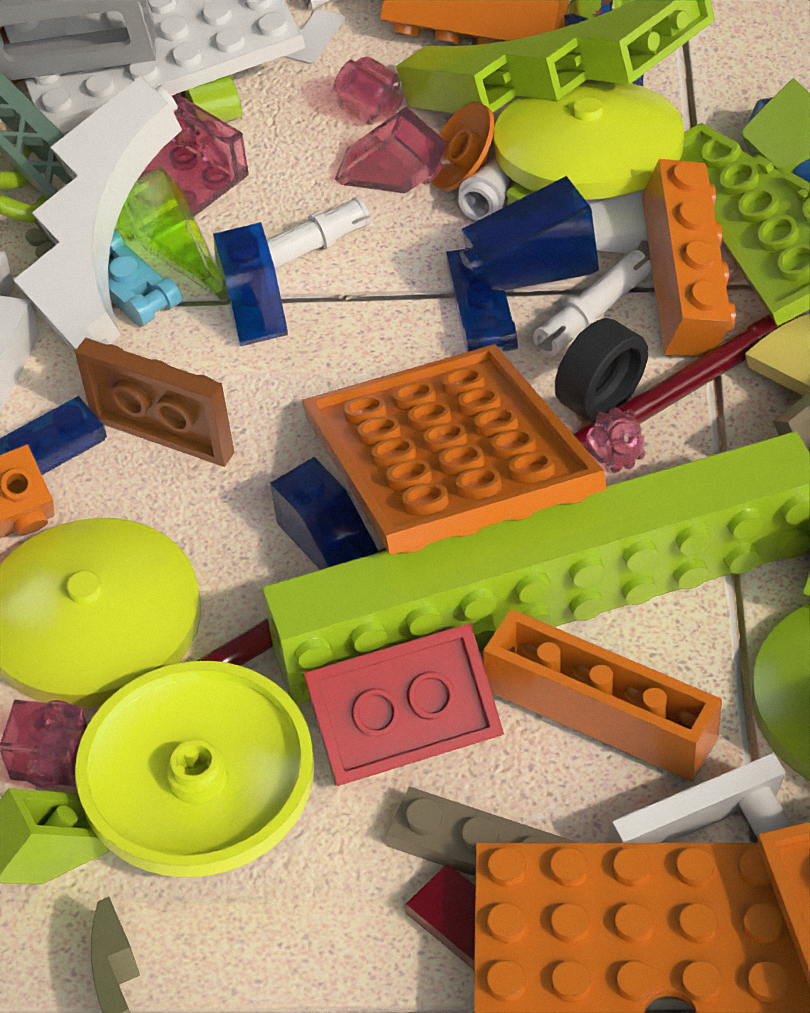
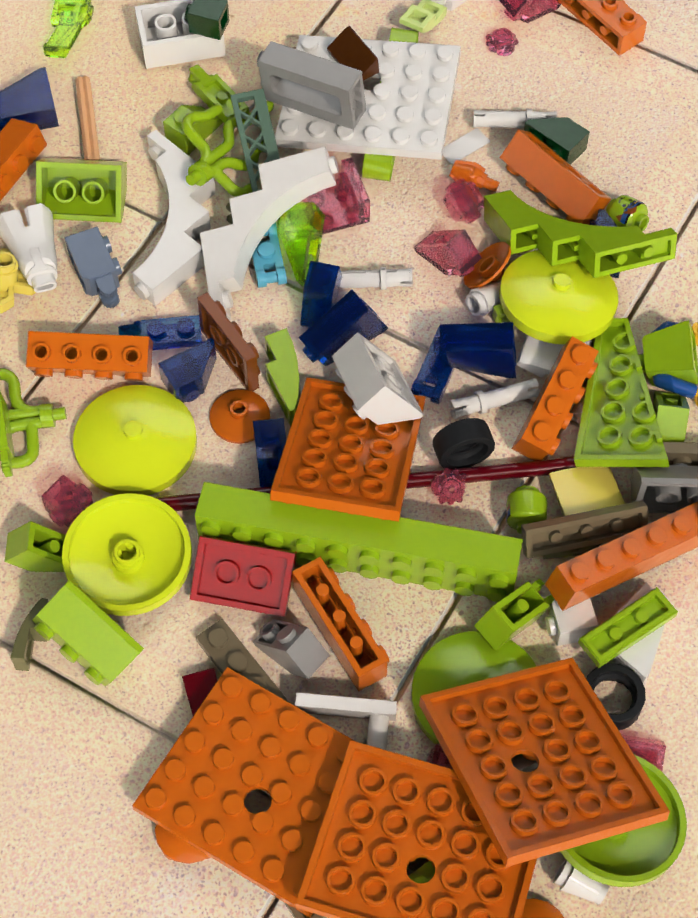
camera: 25 degrees right, 10 degrees up
(112, 474) = (189, 371): none -> clear blue slope
(218, 907) = (86, 635): none -> lime slope
(229, 503) = (237, 426): none -> orange dish
(265, 409) = (283, 372): none -> lime slope
(313, 311) = (339, 325): none -> clear blue slope
(338, 53) = (473, 172): none -> orange piece
(414, 349) = (375, 383): none -> white slope
(550, 768) = (291, 647): none -> light grey slope
(747, 409) = (525, 506): none -> lime head

